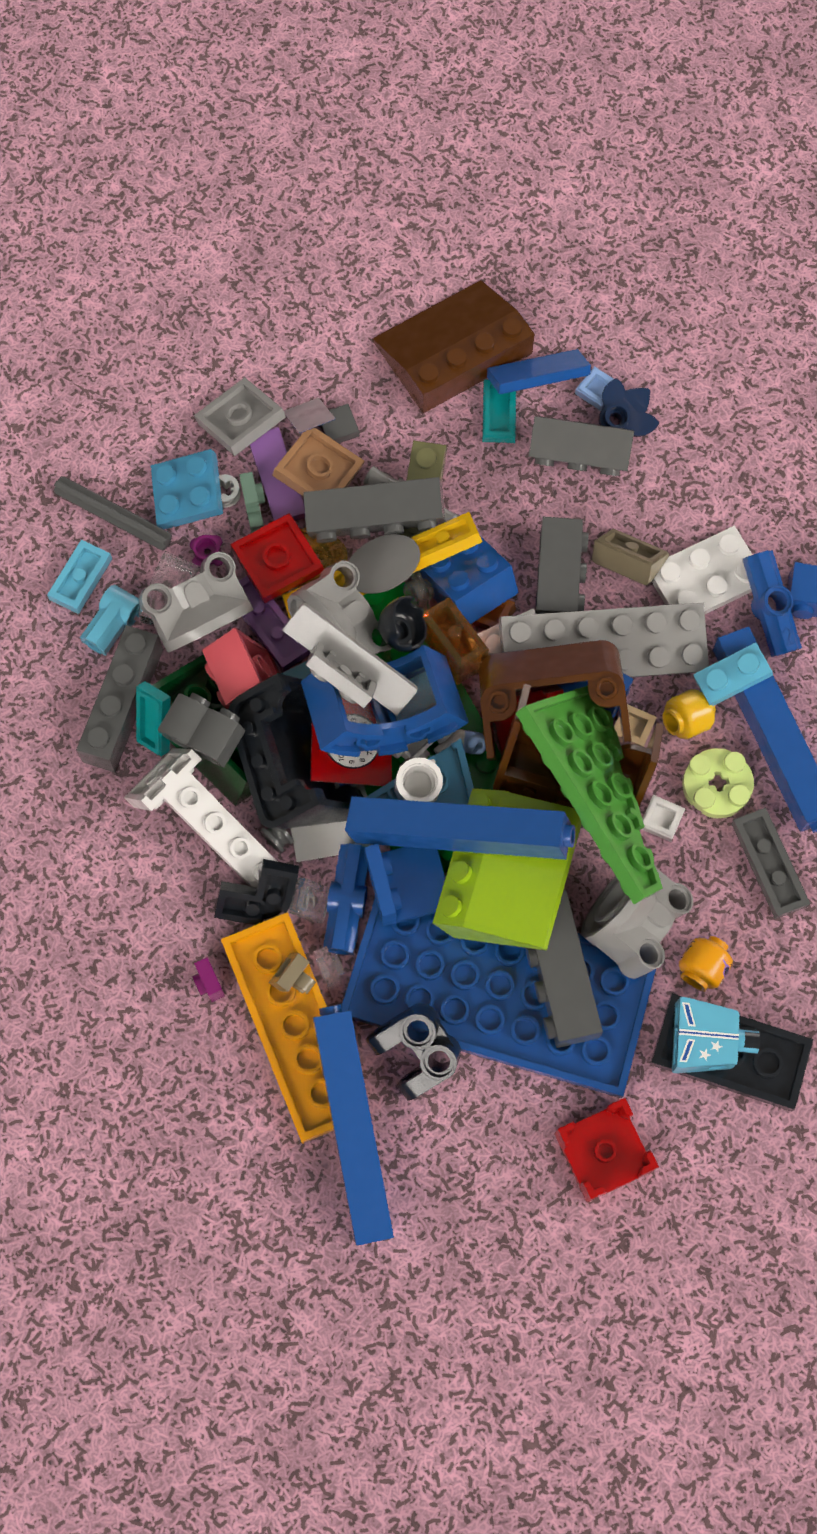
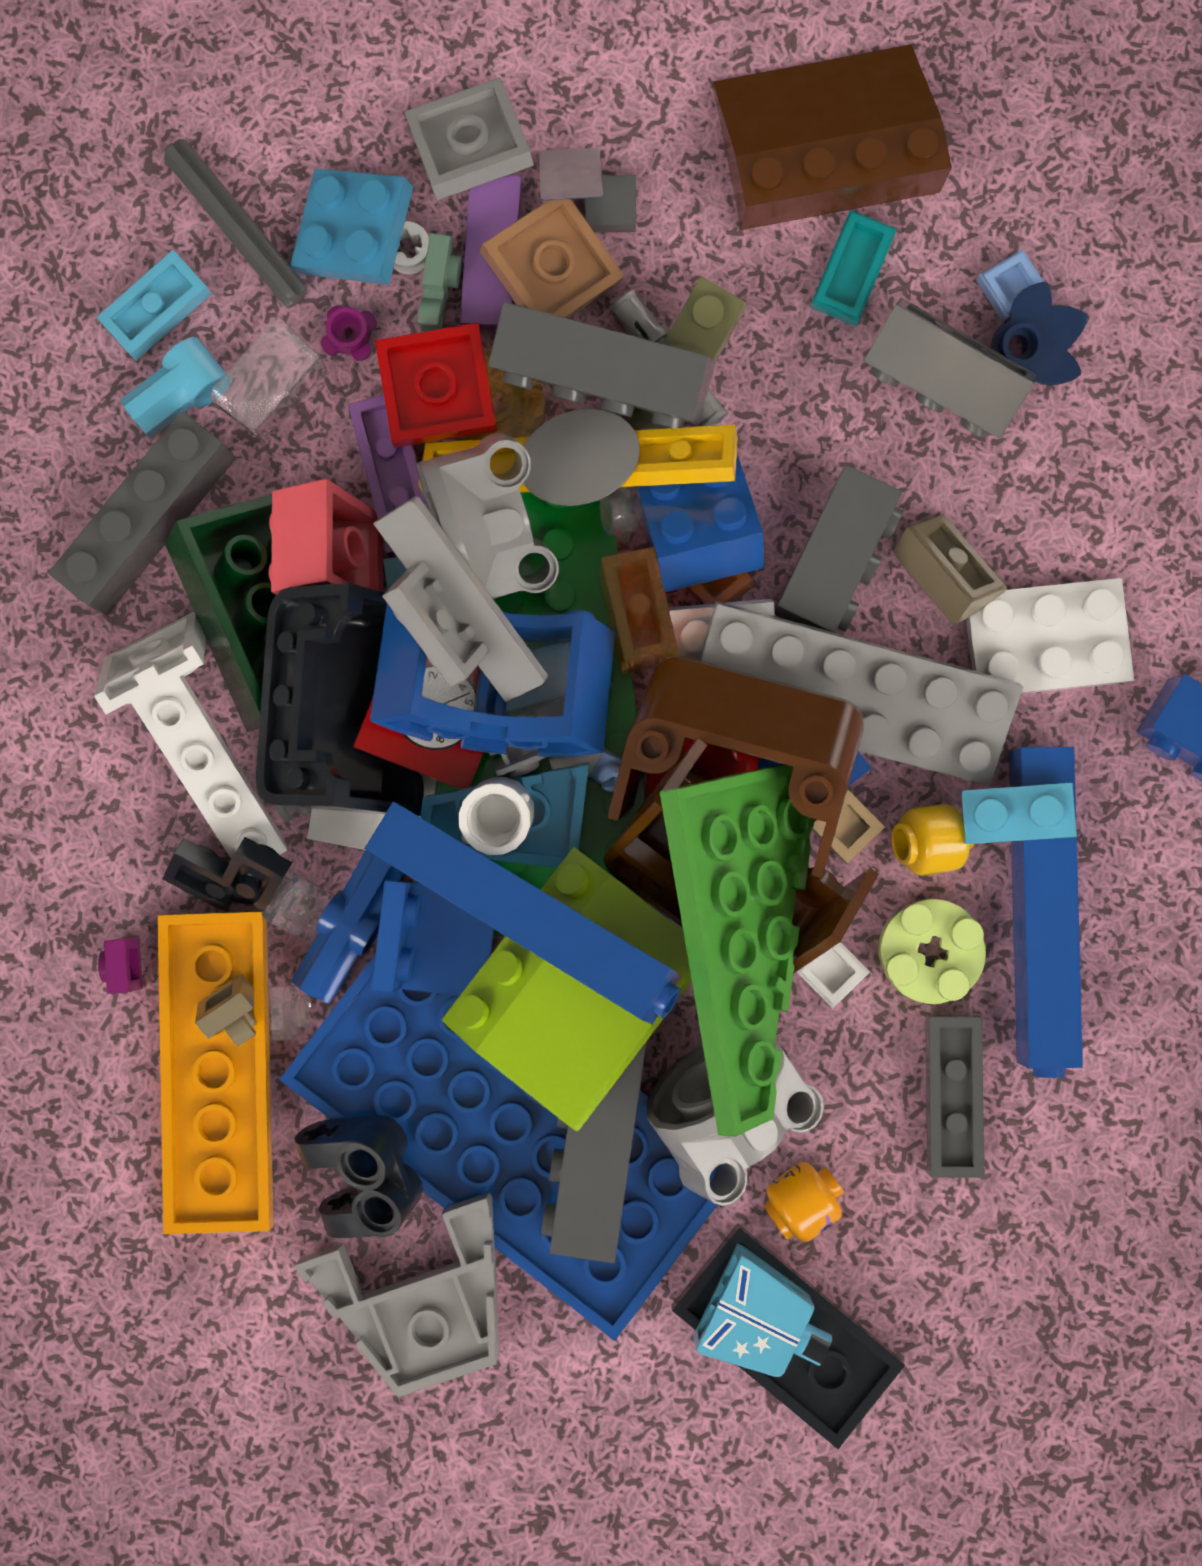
camera: 30 degrees right, 15 degrees up
(150, 711) = (171, 565): teal tile -> none
(197, 604) = (288, 423): light grey piece -> none
(202, 729) = (218, 620): dark grey brick -> none
(352, 1125) = (232, 1246): blue brick -> none
(402, 625) = (566, 569): black hair -> none
(498, 1133) = (426, 1324): none -> light grey wing
(538, 371) = (935, 228): blue tile -> none
(605, 1150) = (561, 1401): red panel -> none
(765, 583) = (1125, 688): blue piece -> none

